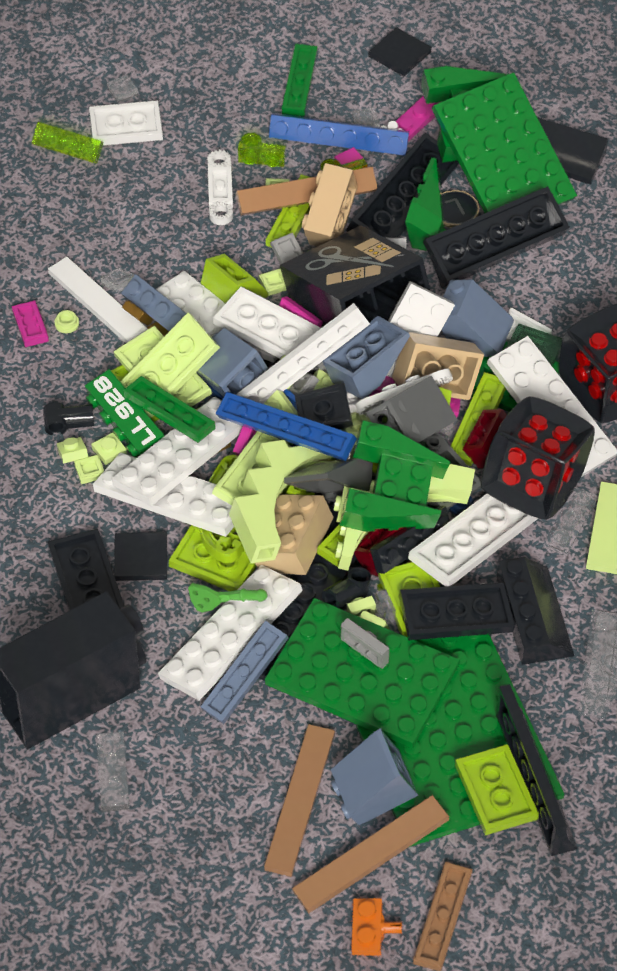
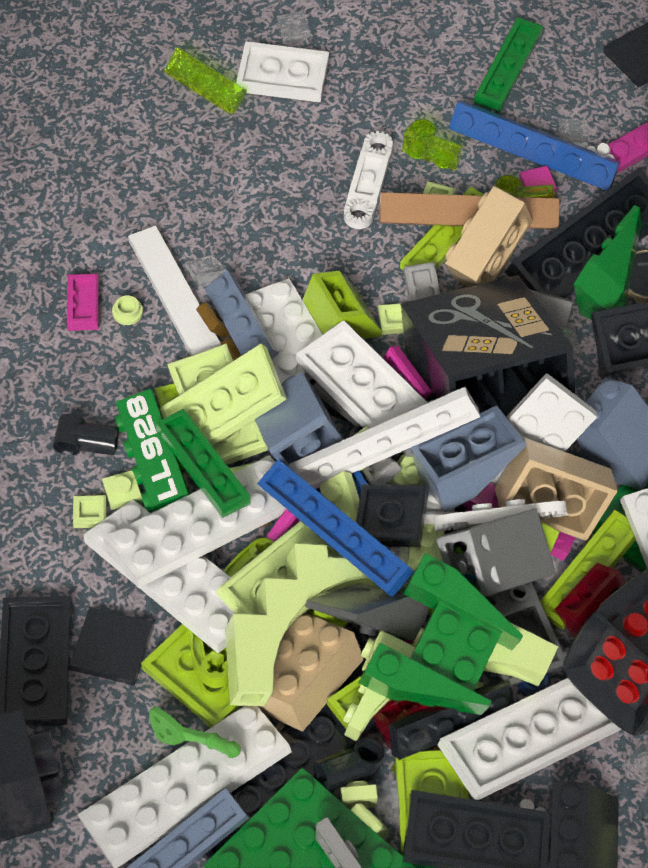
camera: 15 degrees right, 5 degrees up
(72, 449) = (76, 481): yellowish green plate -> none

